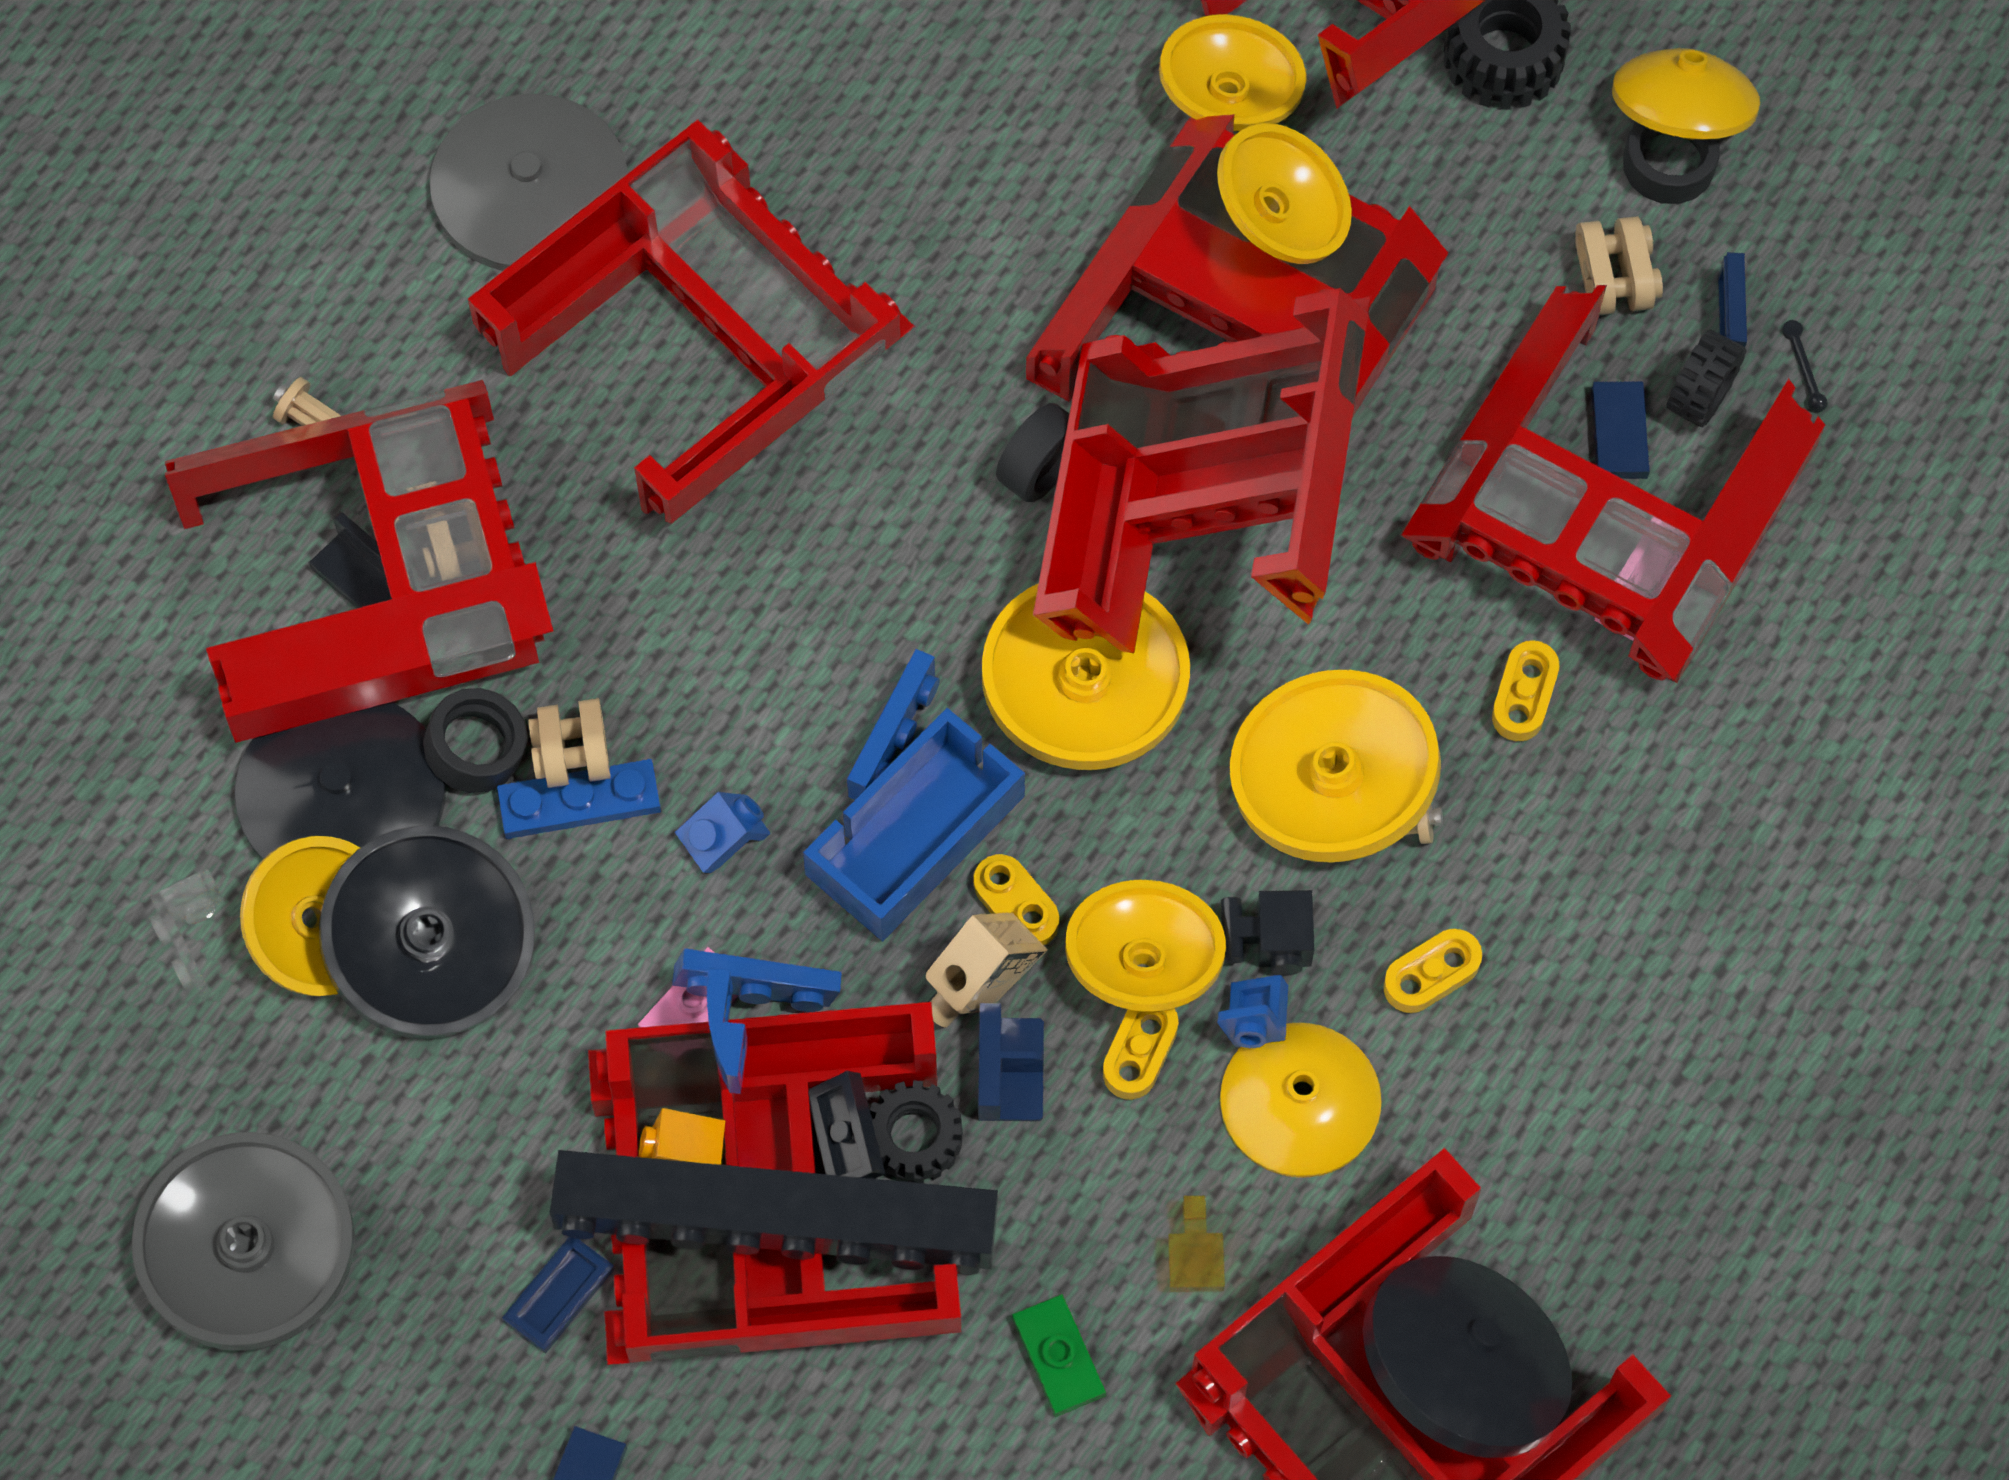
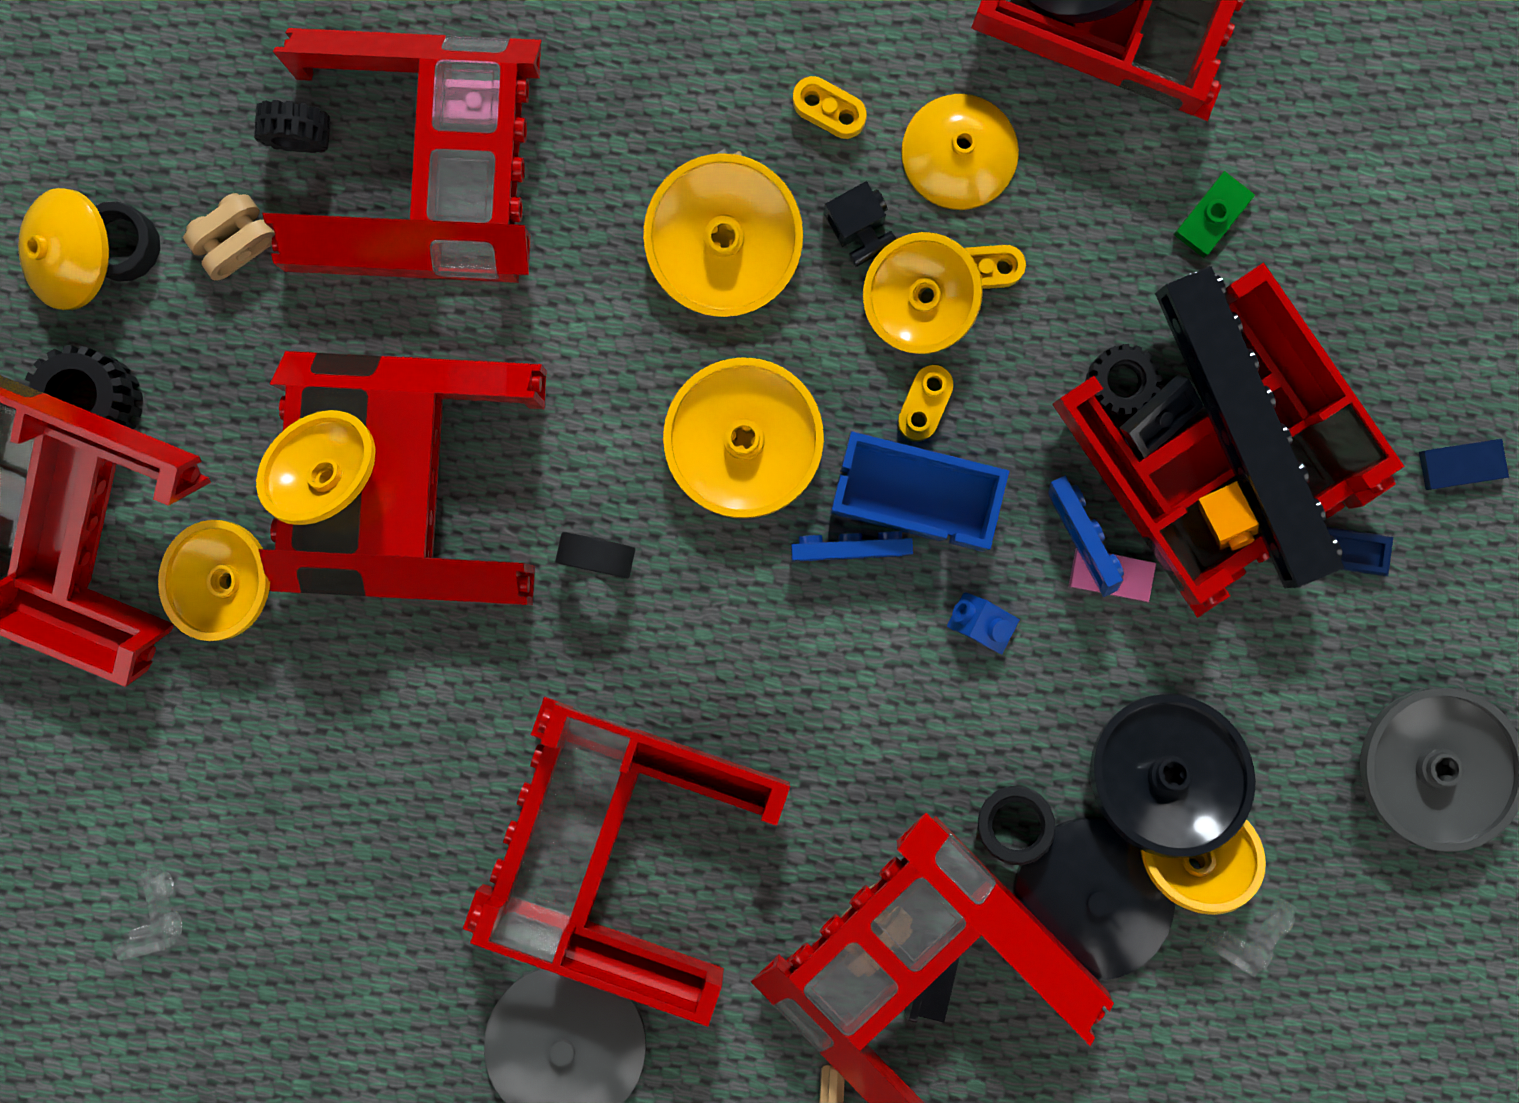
camera: 120 degrees left, 20 degrees up
(536, 809) = (1012, 733): blue plate -> none
(548, 749) = (983, 778): tan brick -> none
(727, 1038) = (1173, 514): blue slope -> none
(981, 964) = (1009, 396): tan torso -> none
(1010, 1066) = (1042, 345): dark blue panel -> none
(1195, 1255) = (1104, 160): clear yellow plate -> none
(1199, 450) = (538, 419): red piece -> none
(1256, 1012) = (923, 202): blue bracket -> none
(1524, 692) = (594, 140): yellow plate -> none
(1620, 428) = (358, 177): dark blue tile -> none
(1732, 298) = (219, 141): dark blue tile -> none
(1793, 330) = (217, 98): black hinge -> none

